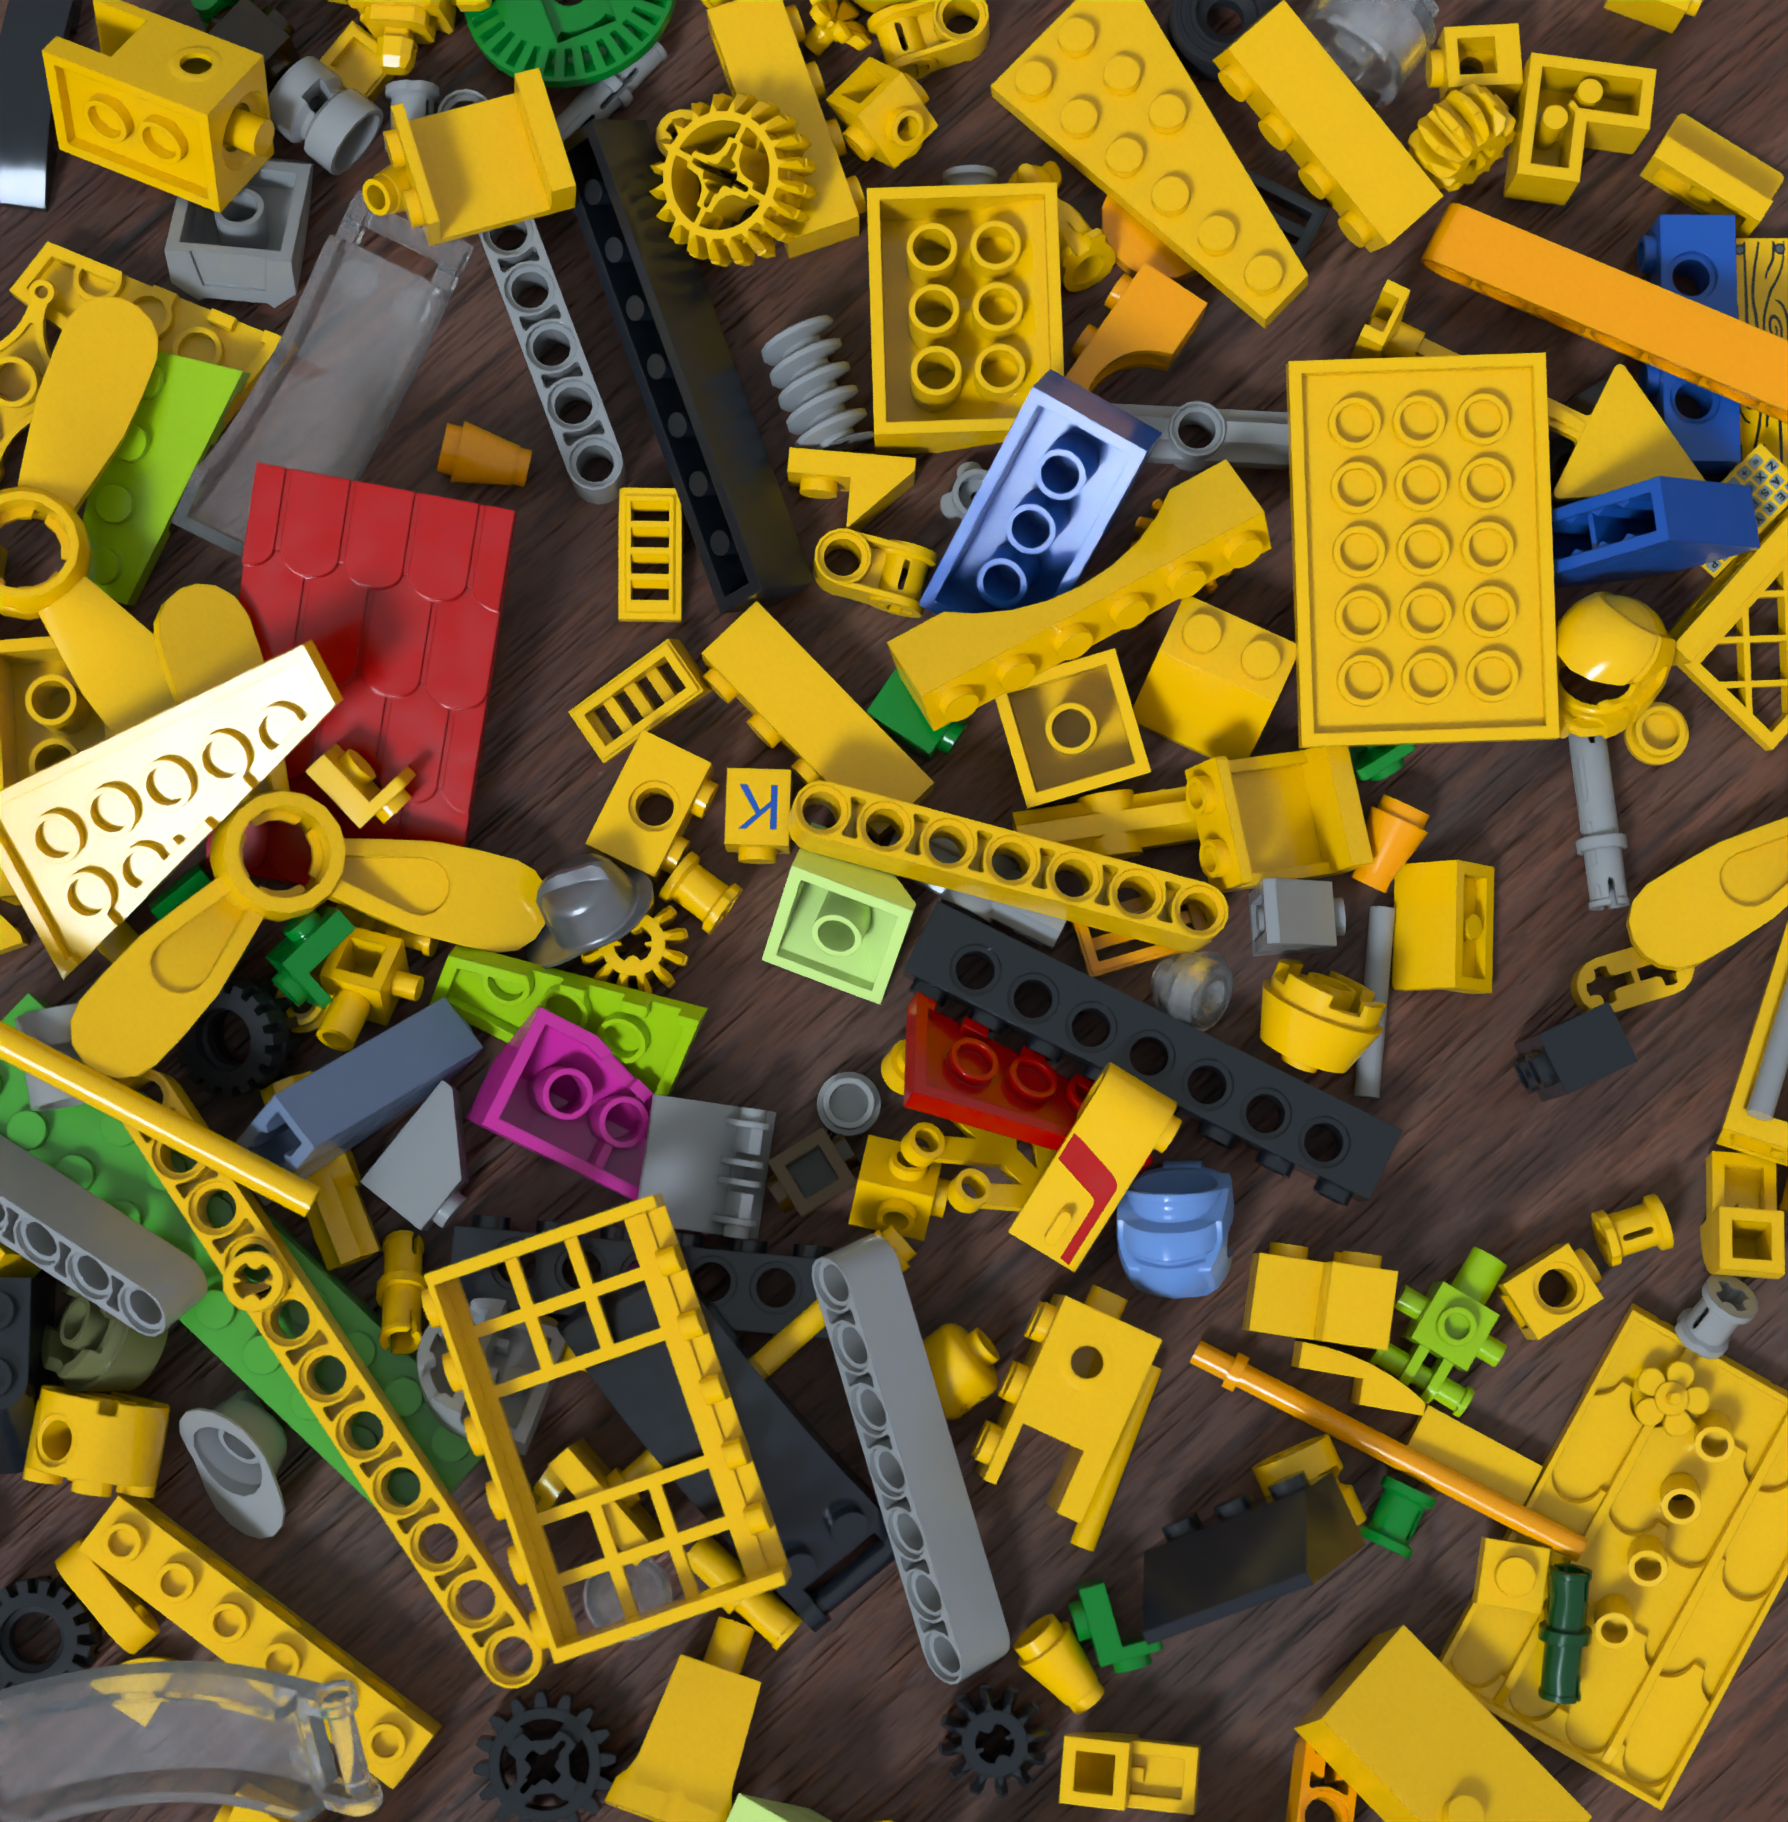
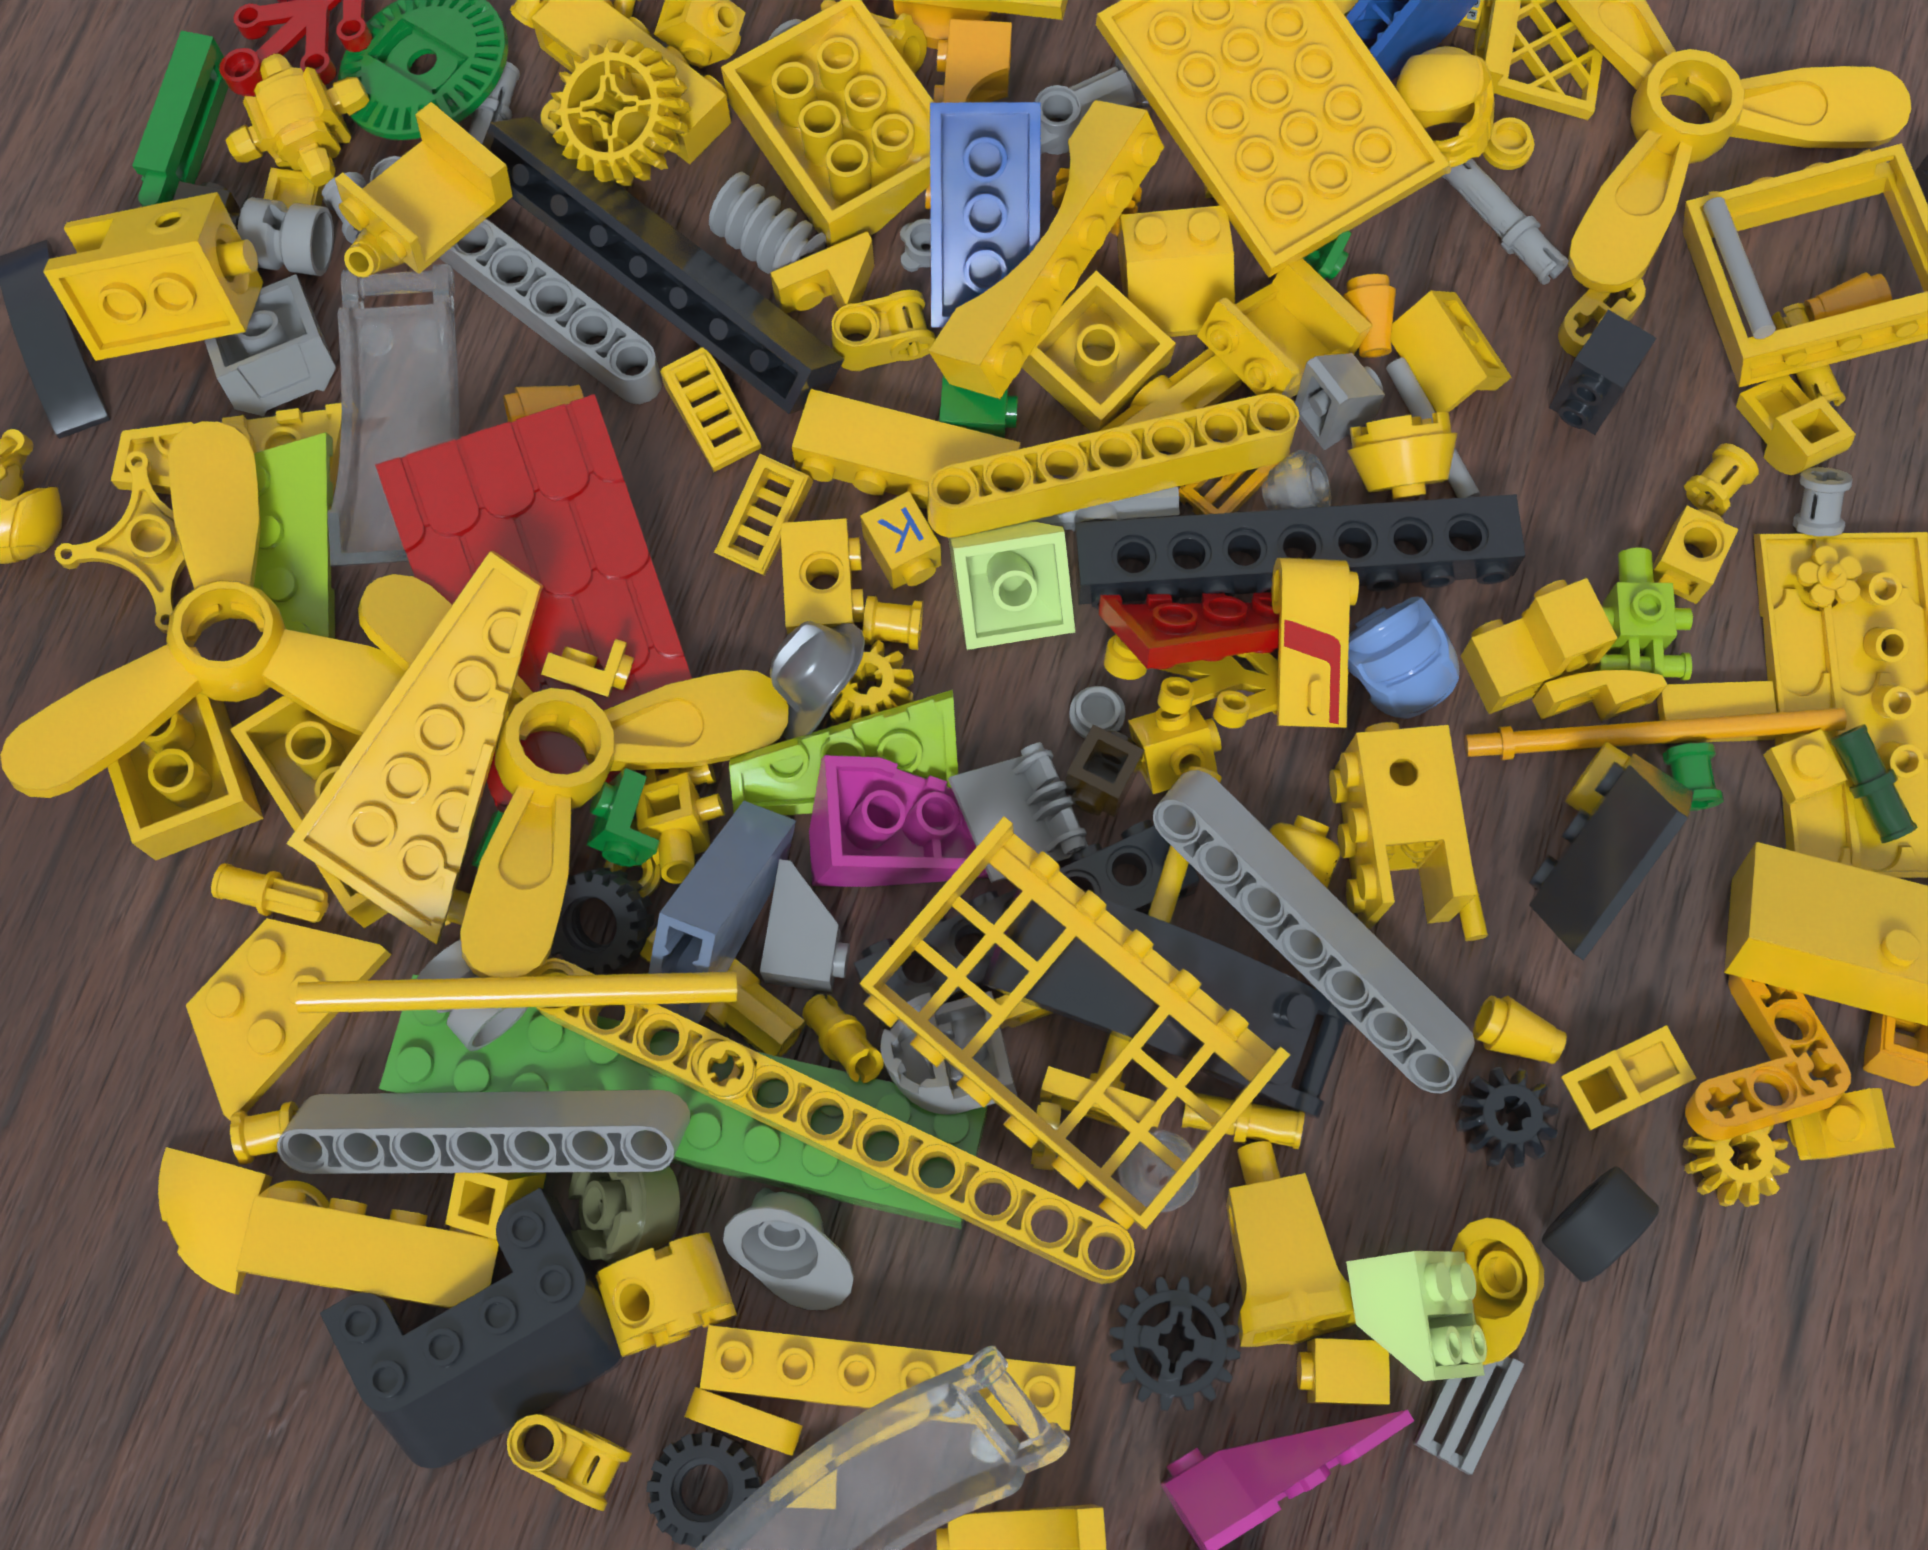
camera: 25 degrees left, 10 degrees down
(1095, 1621) = (1533, 985): green bracket -> none

